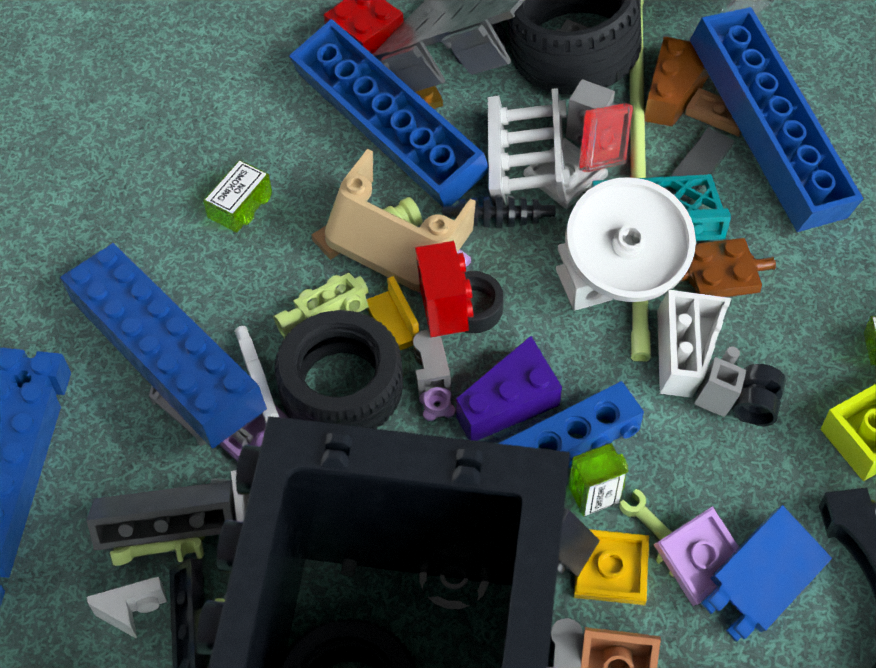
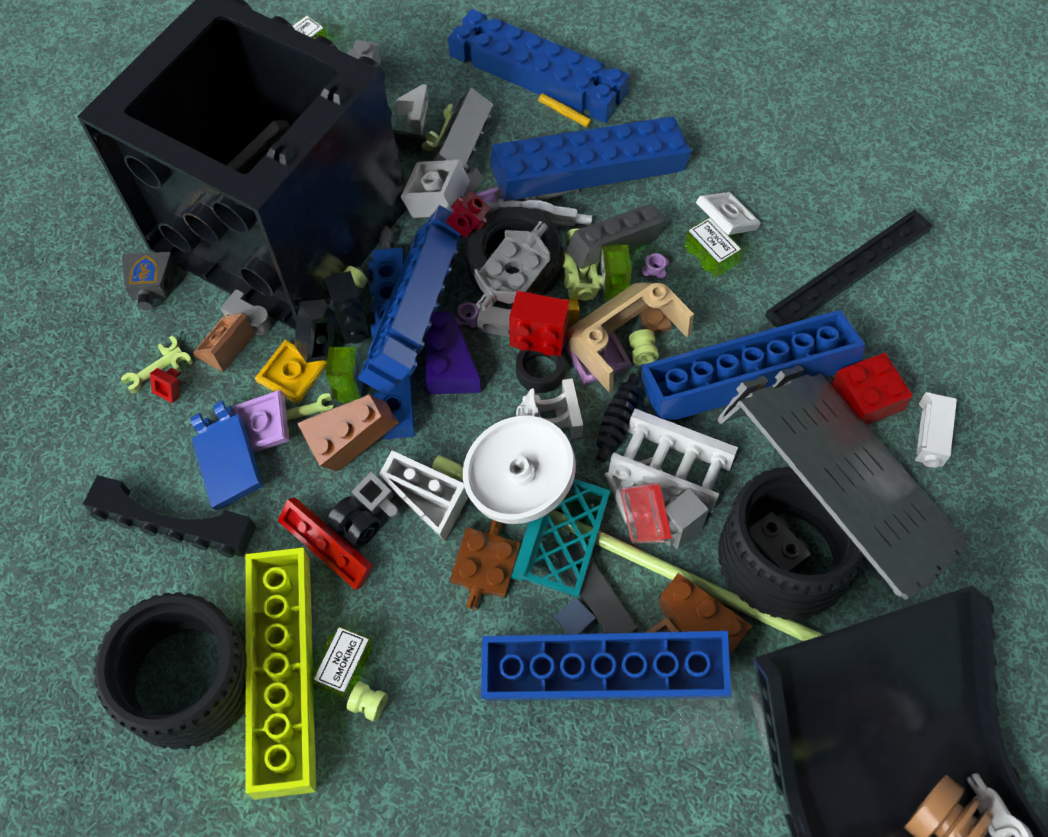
camera: 115 degrees right, 5 degrees up
(65, 424) = (565, 110): none -> yellow piece
(185, 192) = (728, 213): none -> white tile
(221, 79) = (849, 270): none -> black plate
(273, 274) = (630, 228): none -> dark grey brick
(283, 237) = (658, 260): none -> lavender plate
(320, 258) = (615, 270): none -> clear neon green brick
(327, 404) = (470, 209): none -> dark red brick
(359, 324) = (517, 250): none -> light grey plate
(517, 257) = (565, 406): none -> white tile
(524, 408) = (411, 304): none -> blue brick
(669, 439) = (347, 430): none -> wedge
(729, 178) = (575, 617): none -> sand blue tile
(797, 418) = (325, 543): none -> red plate

